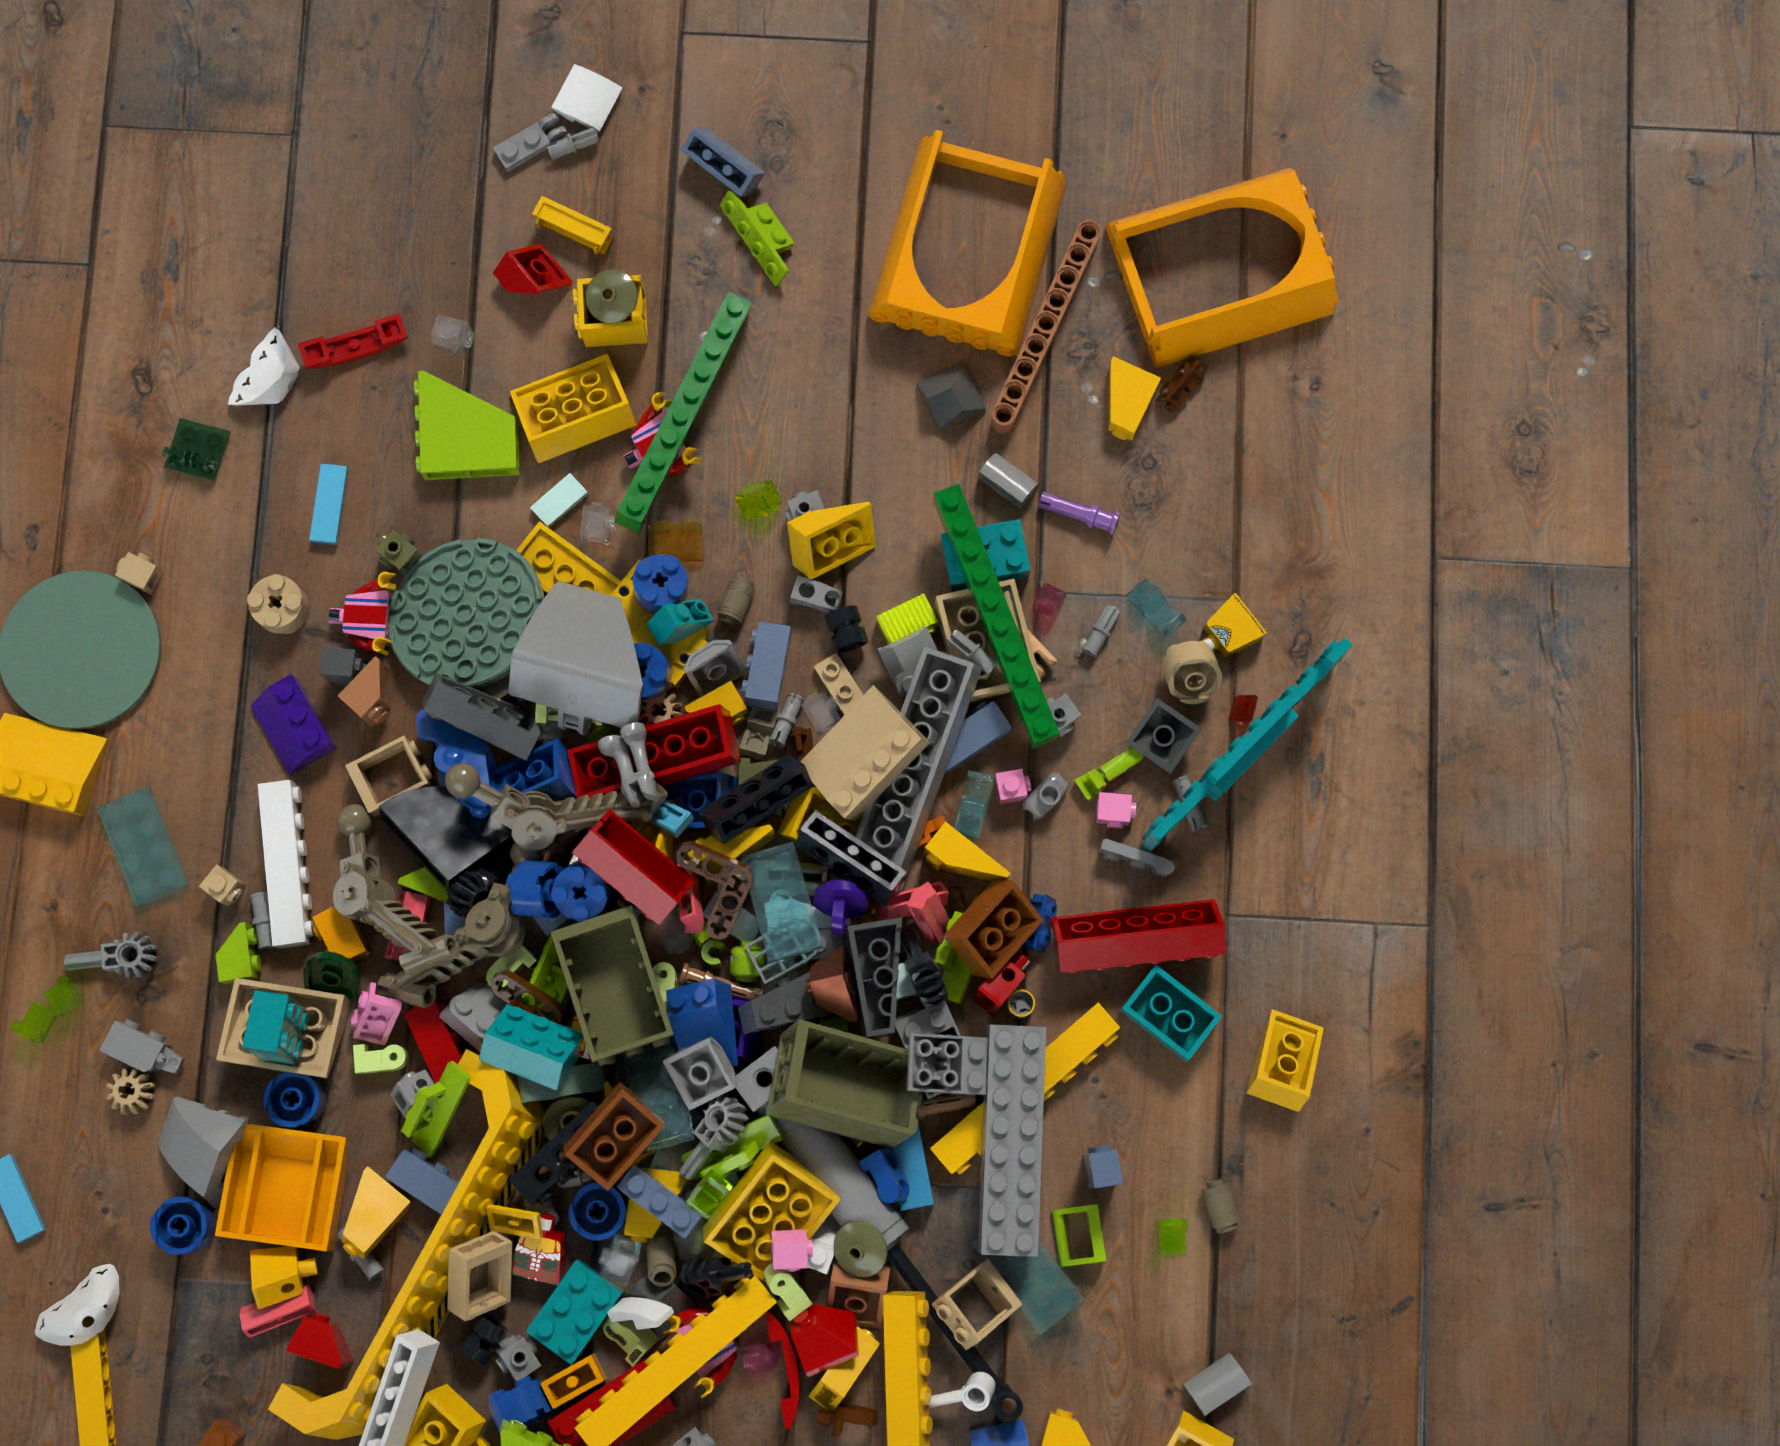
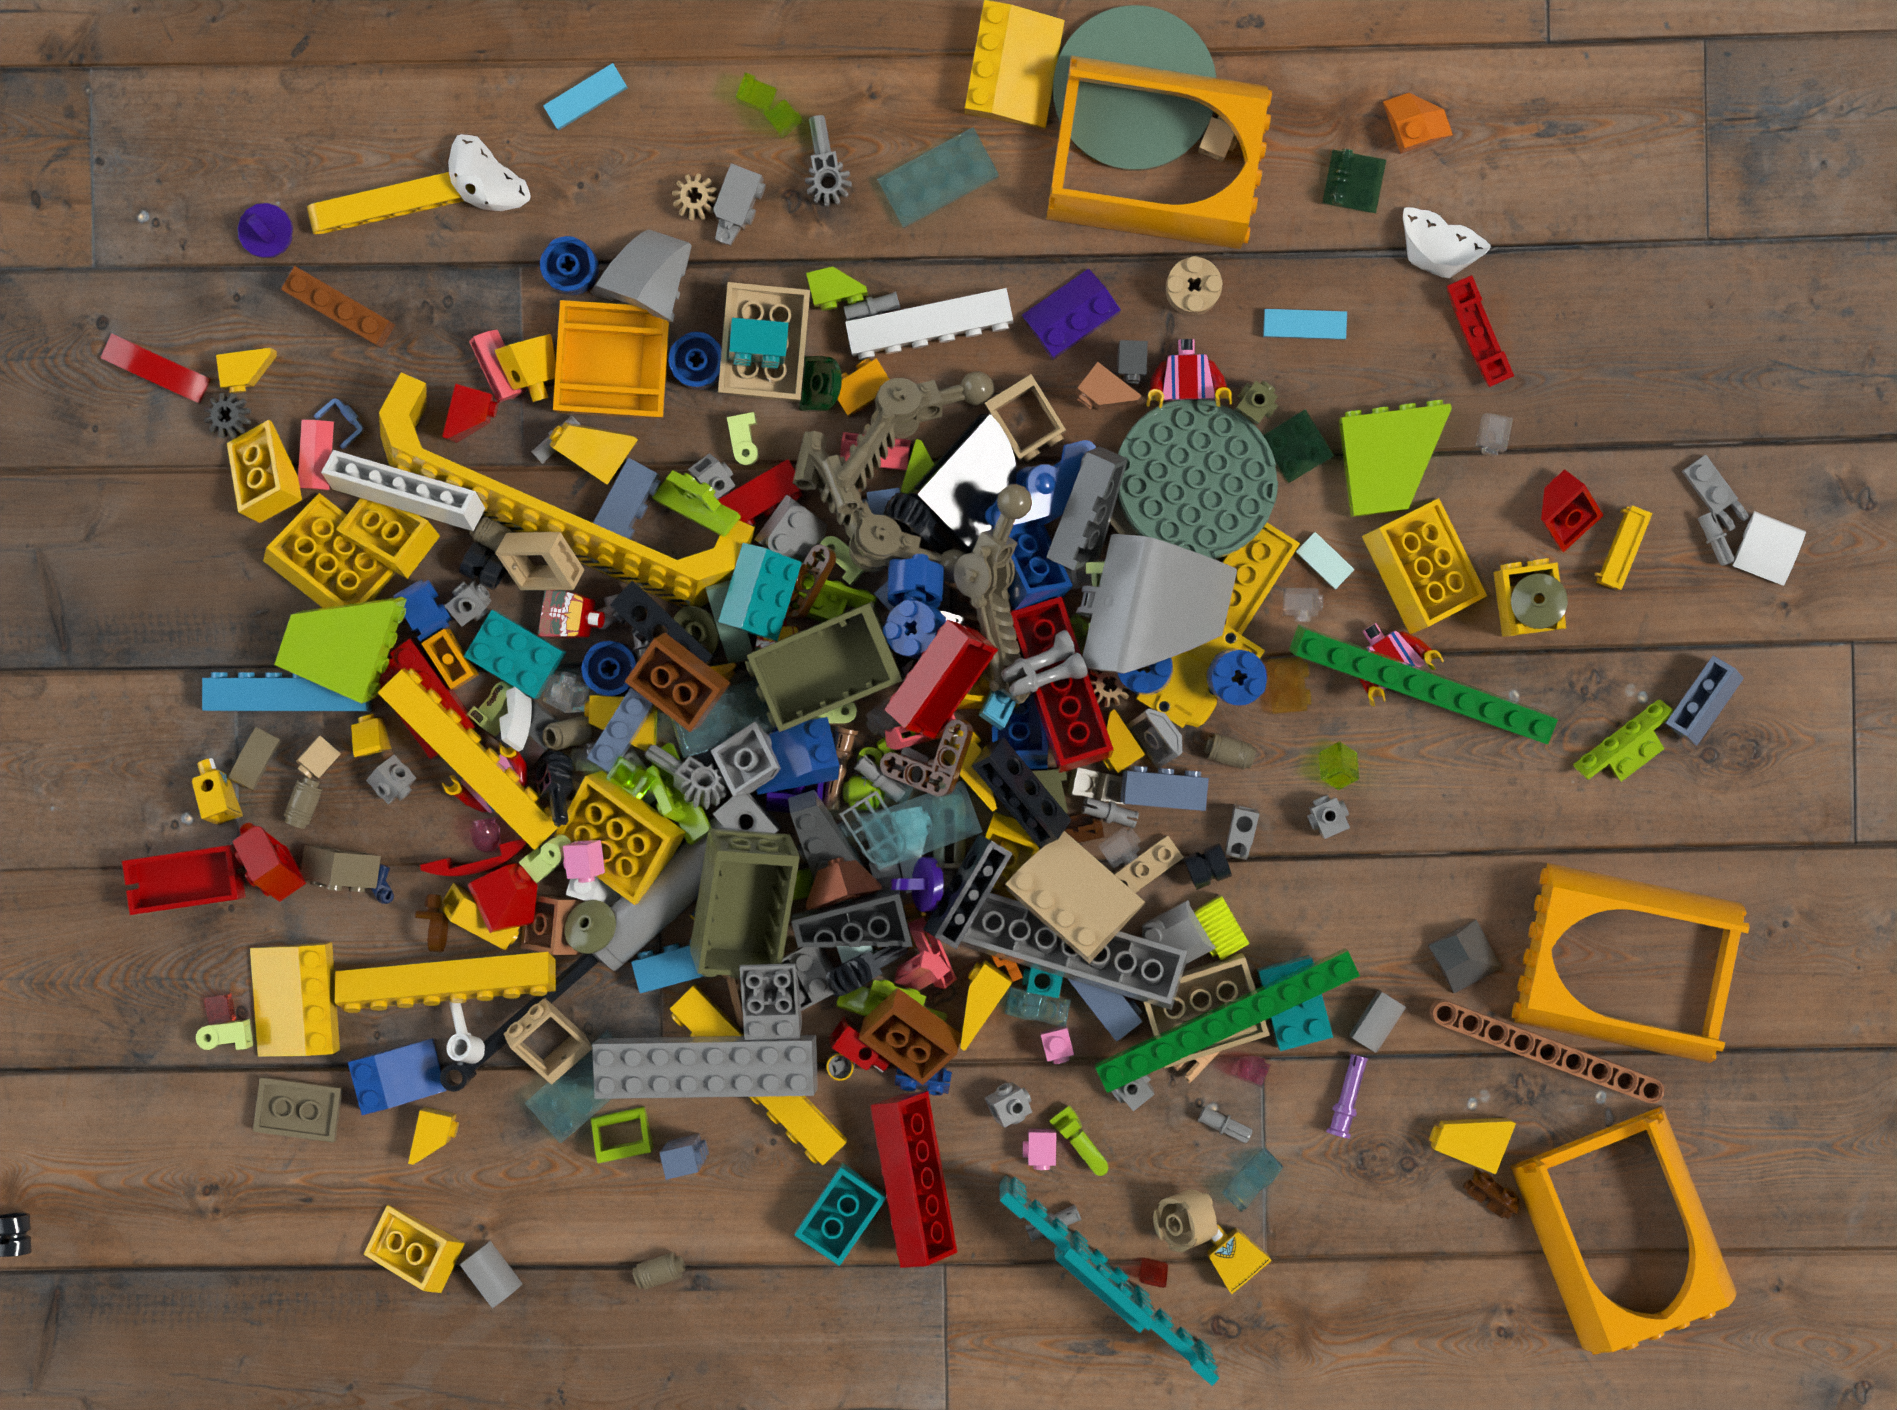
camera: 85 degrees right, 10 degrees up
(148, 389) = (1416, 122): none -> orange slope
(216, 584) = (1213, 221): none -> light orange panel
(222, 885) = (902, 264): tan brick -> none
(375, 1016) = (783, 430): bright pink bracket -> none
(445, 517) = (1297, 446): none -> clear green hinge
(449, 1330) = (489, 533): none -> dark tan head
(514, 1221) = (592, 590): yellow slope -> none
(679, 620) = (1200, 699): teal slope -> none
(733, 941) = (876, 776): none -> light grey pin
(830, 537) = (1300, 844): yellow slope -> none
(888, 1175) = (662, 948): blue leg -> none
(952, 785) = (1051, 990): none -> teal brick
(971, 651) = (1187, 998): light grey axle -> none
(1045, 795) = (1051, 1078): light grey piece -> none
(1069, 837) = (1009, 1104): none -> light grey brick
(1138, 858) = (993, 1173): light grey hinge -> none
(1163, 735) = (1118, 1195): dark grey slope -> none
(1171, 1235) = (628, 1224): clear neon green panel -> none
(1286, 1061) = (803, 1329): yellow slope -> none

